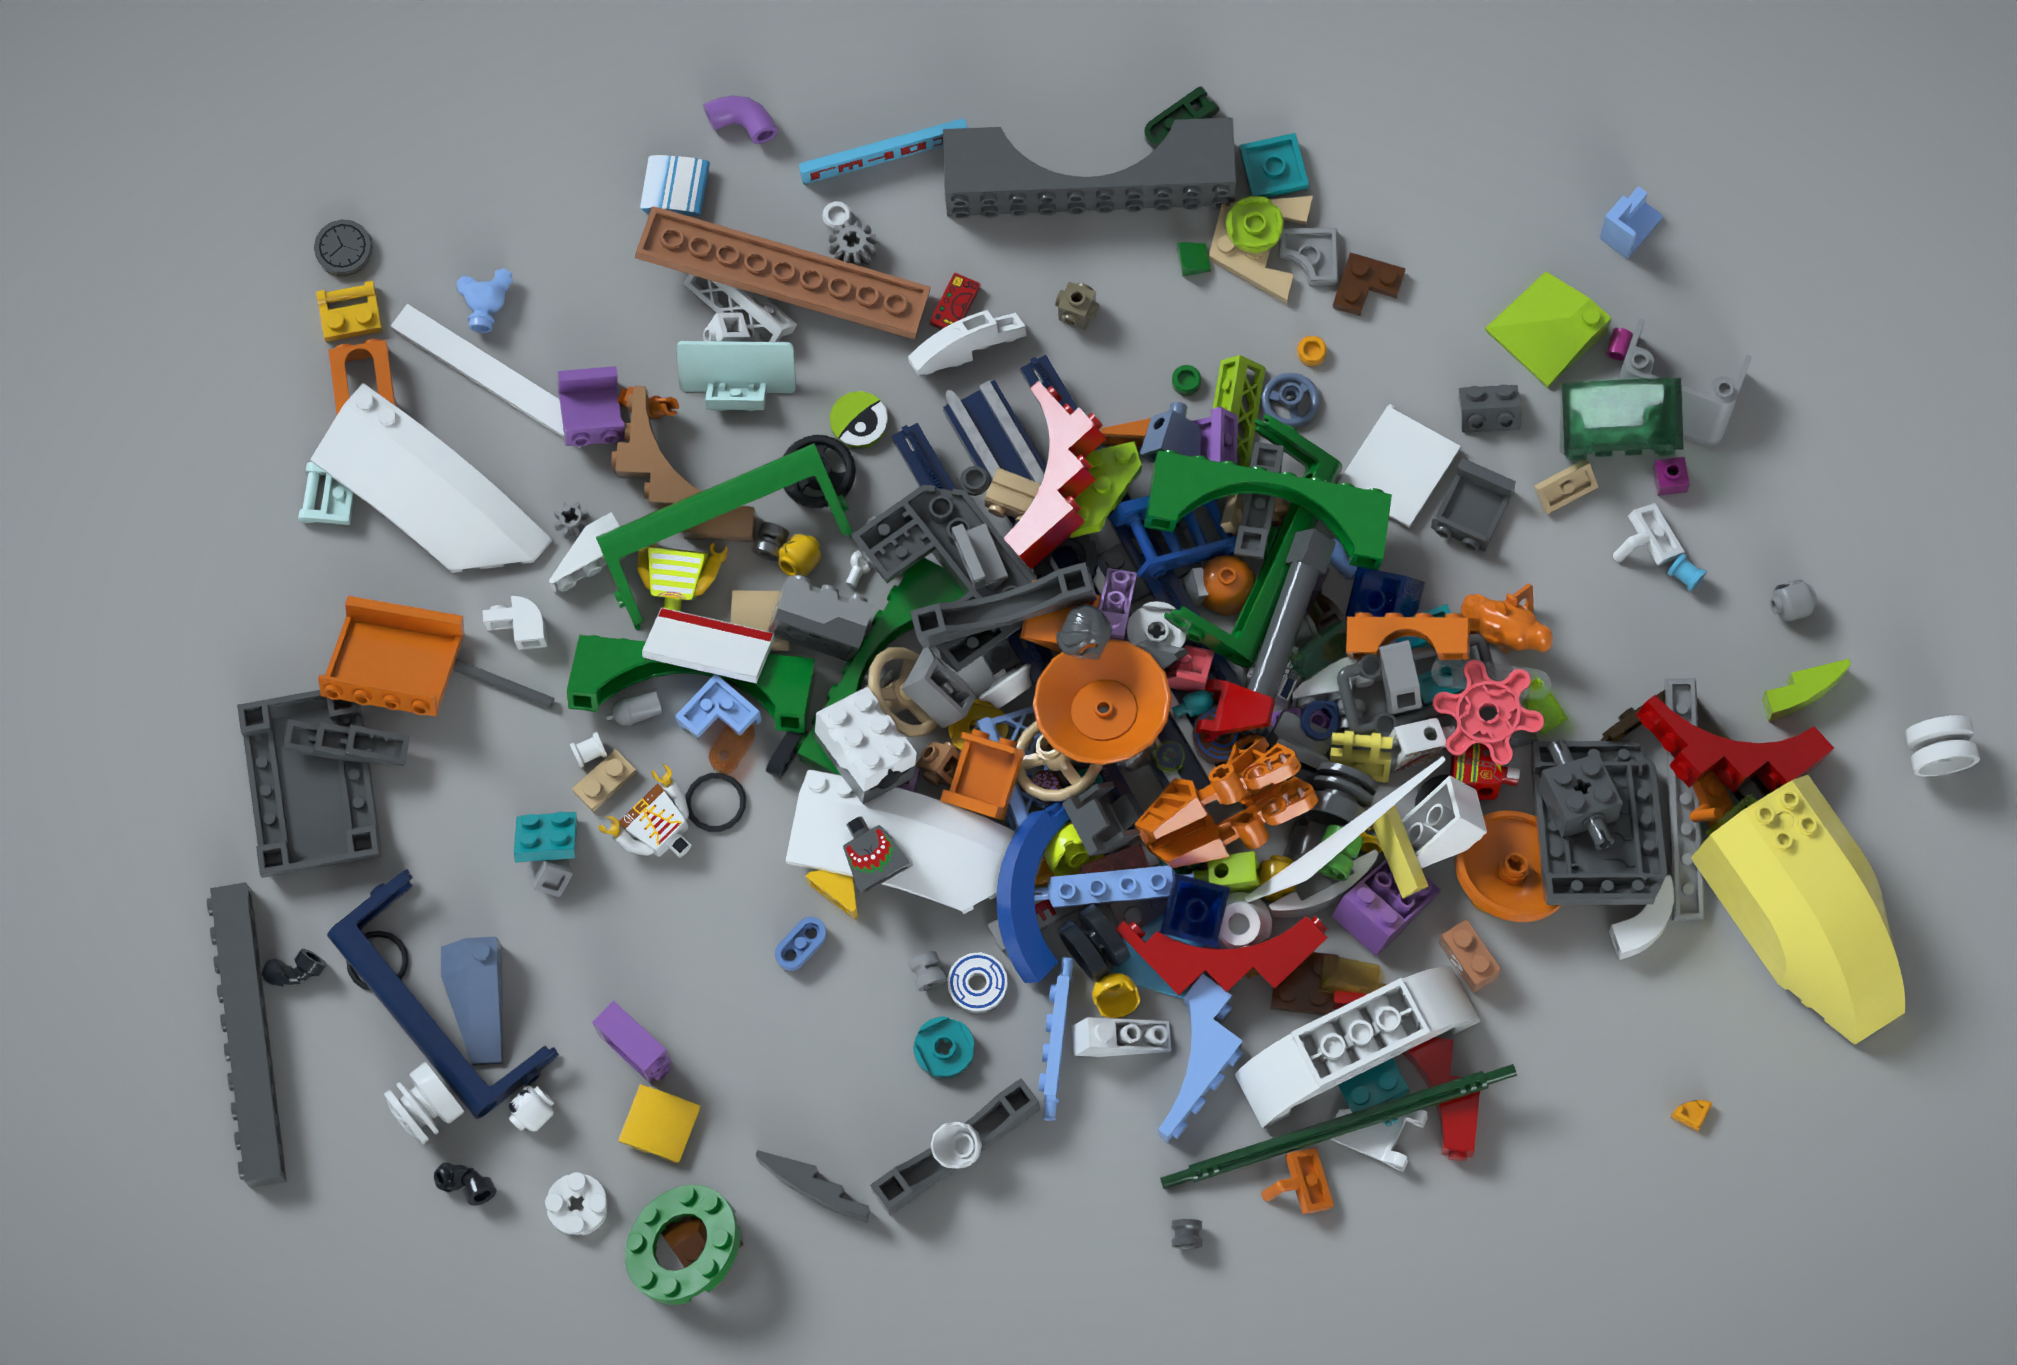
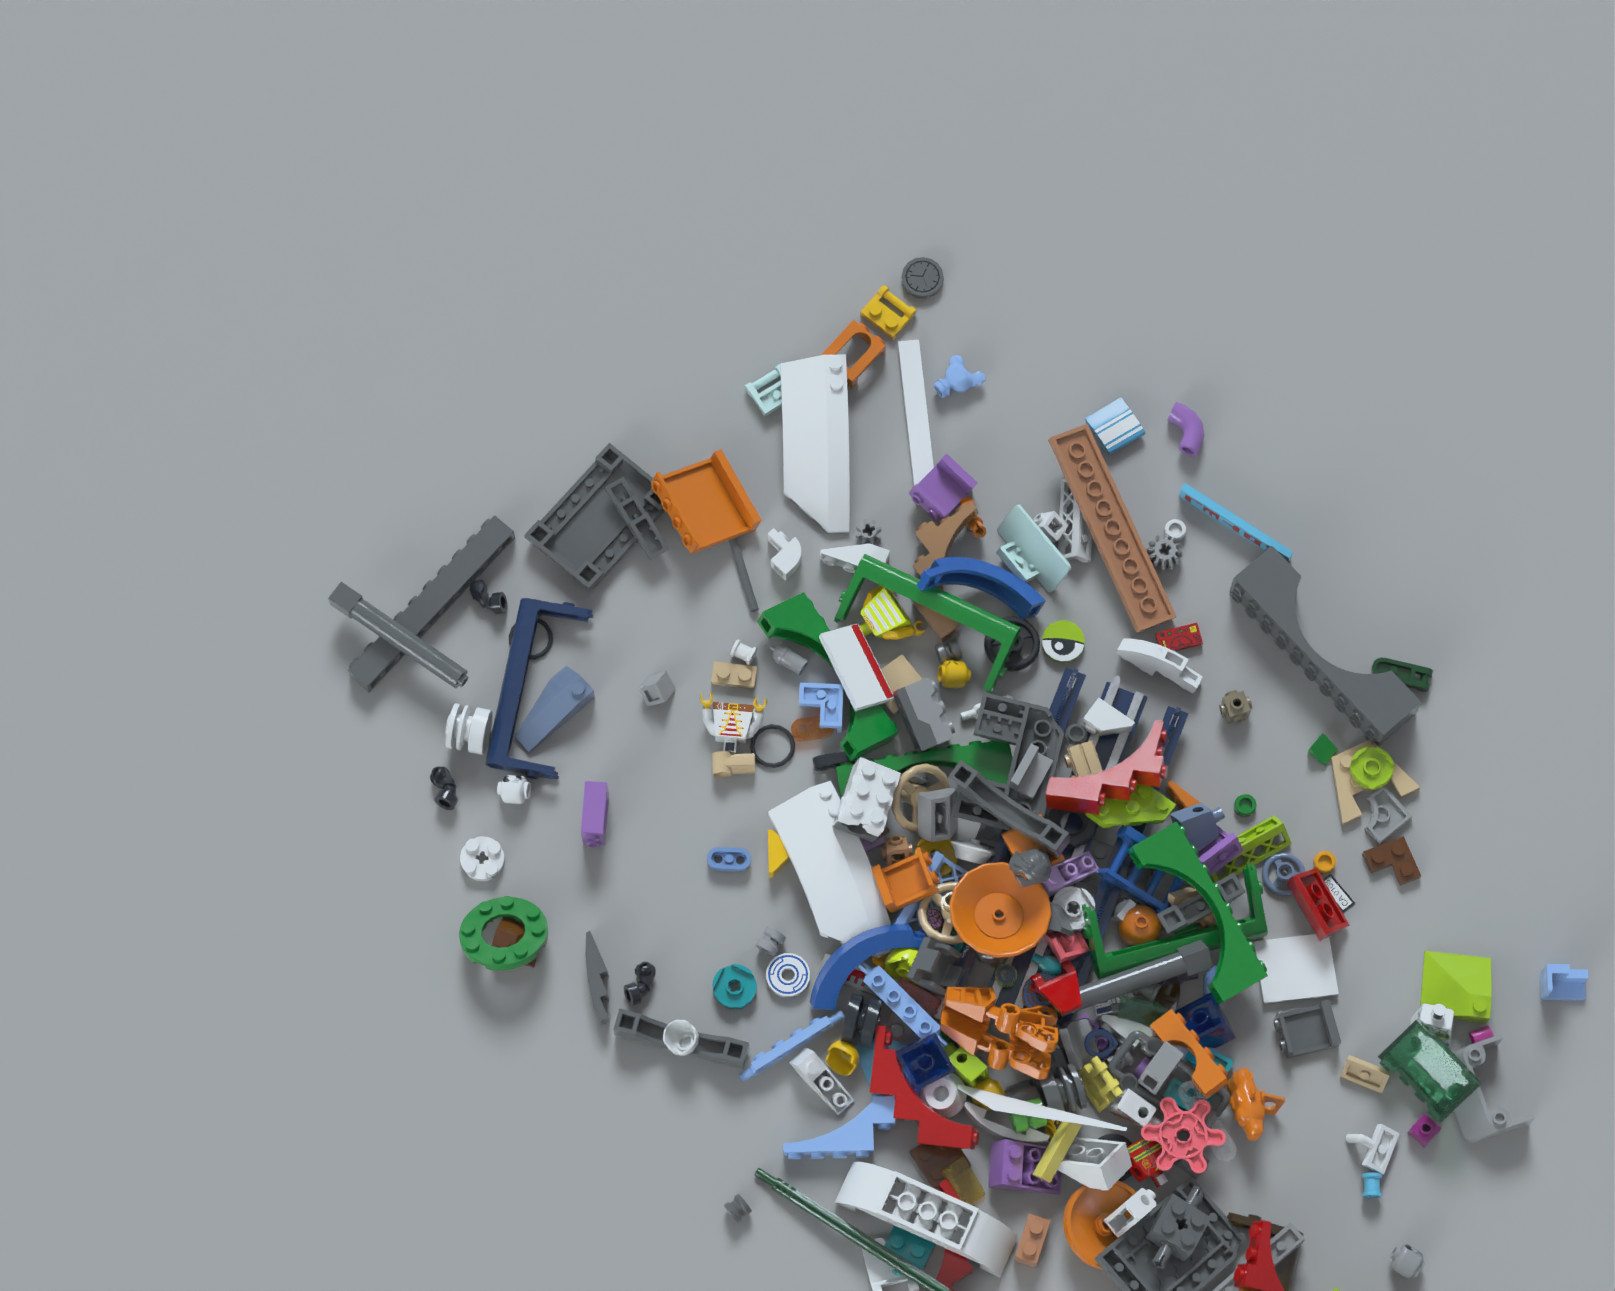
camera: 45 degrees right, 0 degrees up
(178, 1117) = (355, 607): none -> dark grey brick
(545, 837) = (673, 670): teal plate -> none
(659, 1123) = (563, 865): yellow slope -> none
(696, 863) = (726, 764): none -> tan piece
(731, 437) = (984, 577): none -> blue arch
(852, 1132) = (644, 975): none -> black arm
(873, 855) = (807, 856): dark grey torso -> none
(986, 436) = (1106, 720): none -> white slope
(1274, 166) = (1418, 750): teal plate -> none
(1307, 1181) = (824, 1251): orange plate -> none
(1351, 391) = (1317, 903): none -> red slope
(1353, 365) = (1340, 895): none -> white sticker
(1378, 699) = (1141, 1067): none -> medium lavender tile
(1490, 408) = (1376, 992): dark grey bracket -> none
(1526, 815) = (1137, 1205): none -> white torso
(1548, 707) = (1216, 1169): clear neon green slope -> none
(1570, 366) = (1438, 1019): none -> white torso

